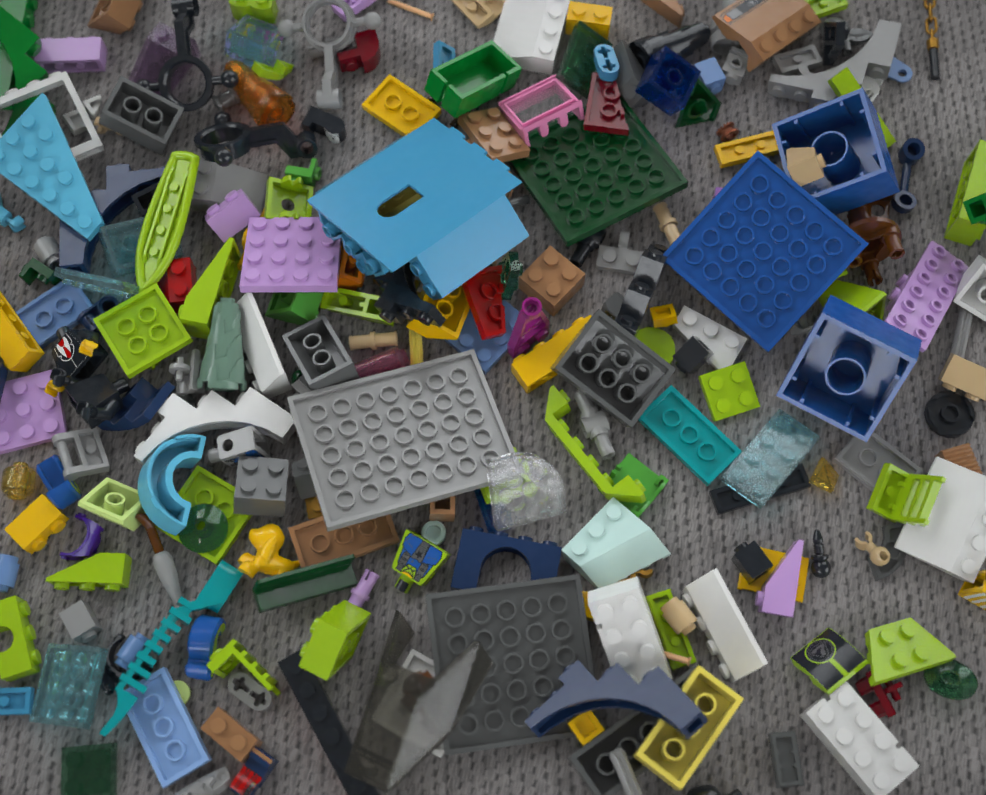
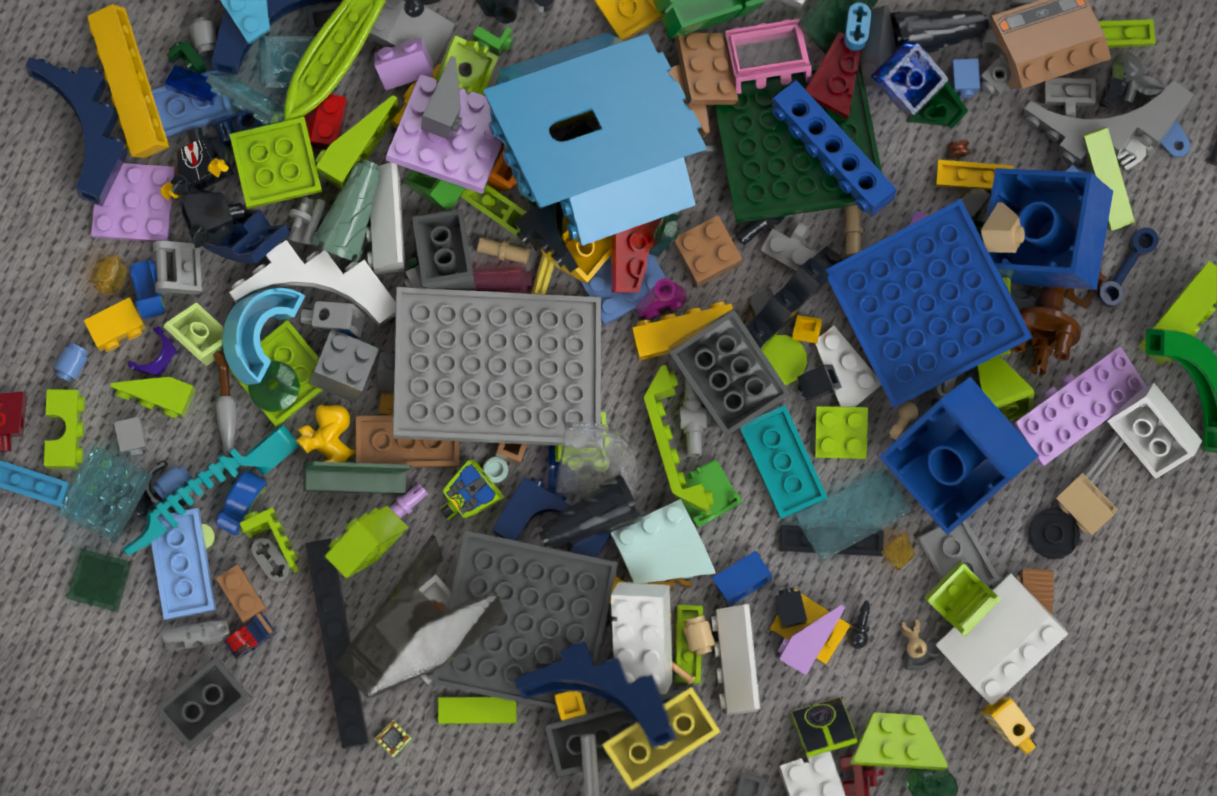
camera: 15 degrees right, 10 degrees up
(50, 295) = (190, 85): none -> clear blue slope
(277, 230) = (443, 109): none -> slope
(496, 766) = (476, 710): none -> lime tile
(542, 536) = (596, 513): none -> black cone
(628, 157) = (798, 99): none -> blue brick
(696, 550) = (742, 578): none -> blue hinge
(779, 355) = (908, 412): none -> tan arm

